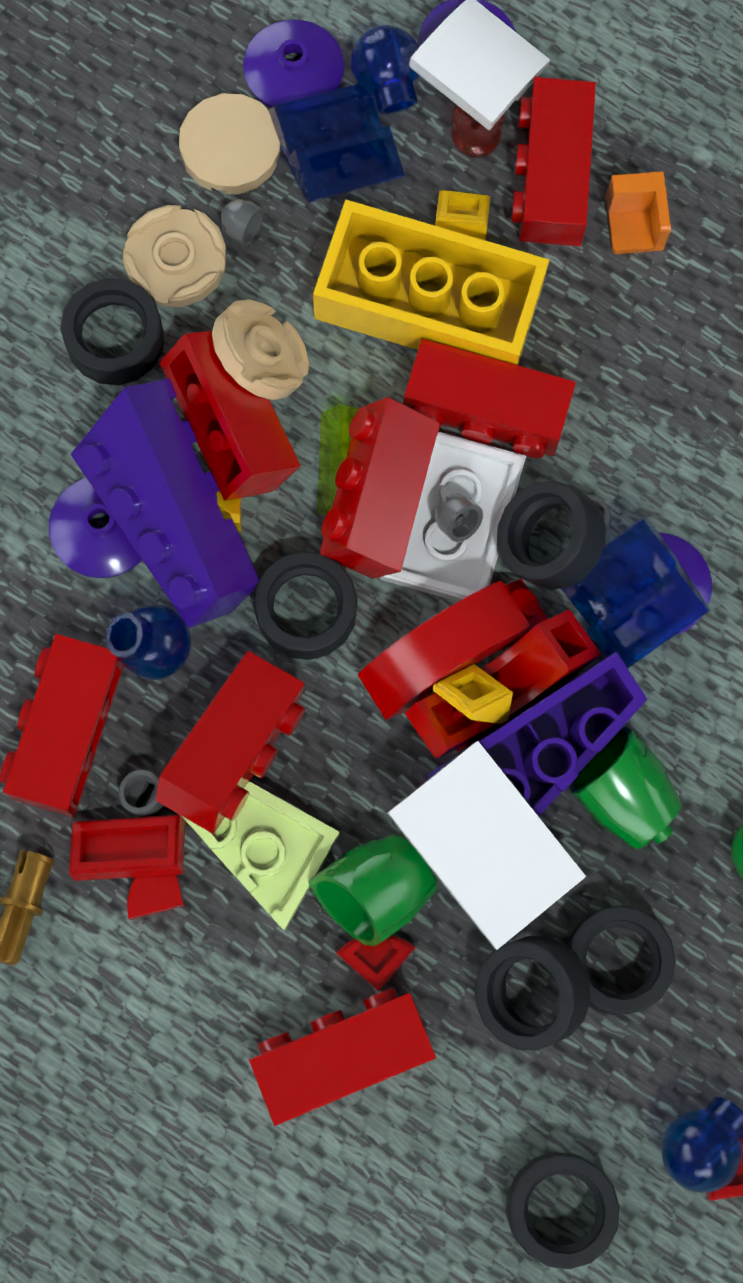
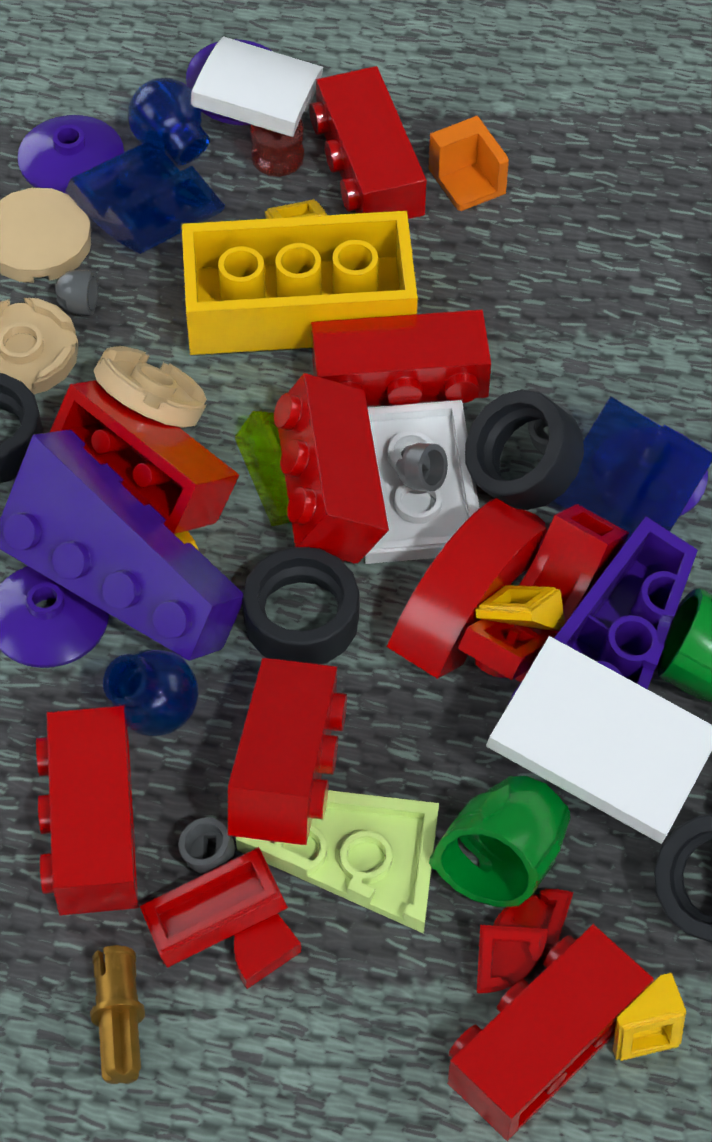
camera: 20 degrees left, 20 degrees down
(338, 980) = (507, 955): none -> red tile
(425, 1083) = (651, 1021): none -> yellow slope

